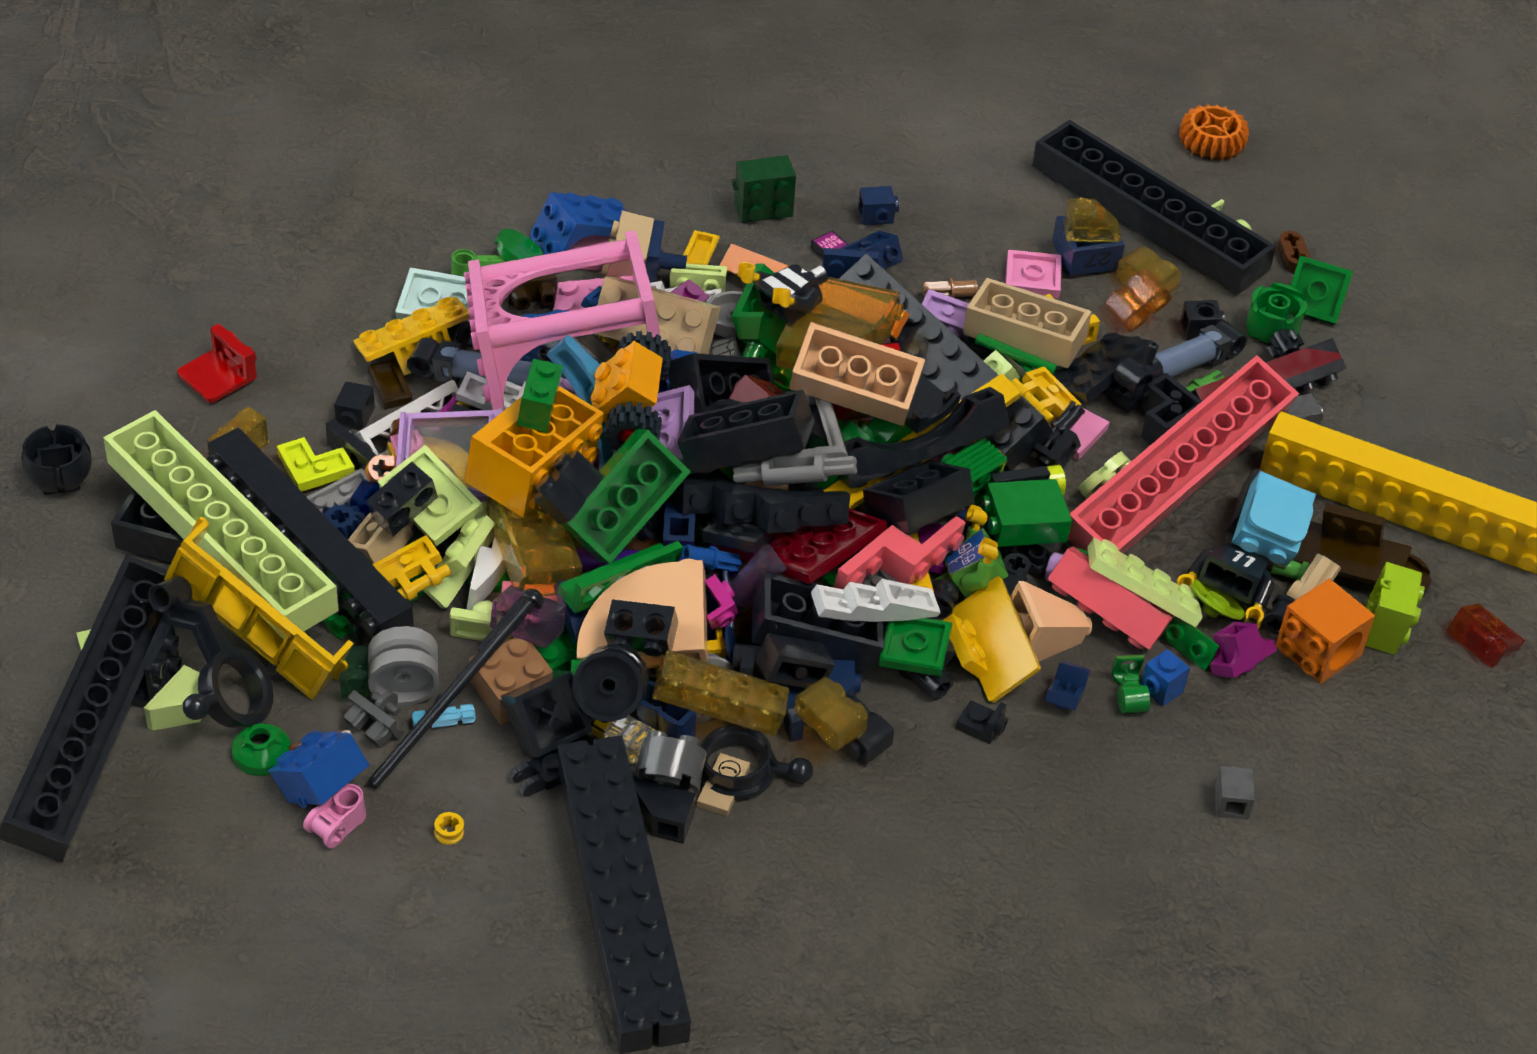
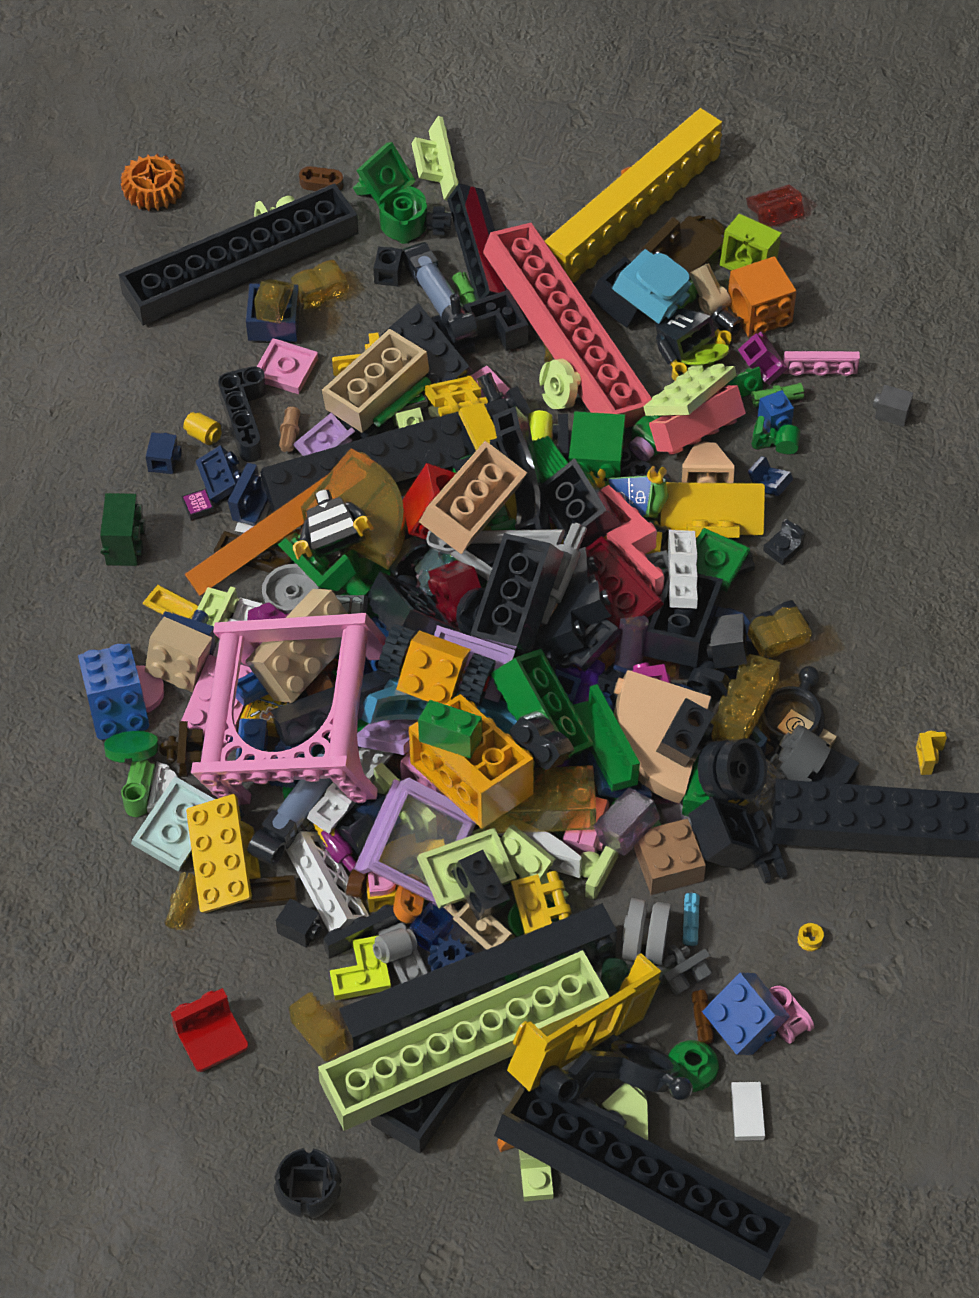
camera: 70 degrees left, 10 degrees up
(212, 805) = (747, 1111): none -> white tile
(338, 471) = (394, 945): none -> light grey brick
(358, 323) = (180, 901): none -> clear yellow pin
(529, 599) = (662, 854): black bar -> none
(712, 558) = (606, 671): blue axle -> none
(731, 896) = (927, 750): none -> yellow bracket
(921, 227) = (202, 428): none -> yellow brick
(957, 245) = (235, 391): none -> black beam
(1138, 300) = (357, 299): clear orange brick -> none
(1199, 683) = (791, 391): none -> bright green pin
(1263, 712) = (821, 362): none -> bright pink tile
(1374, 324) = (435, 159): none -> yellowish green bracket

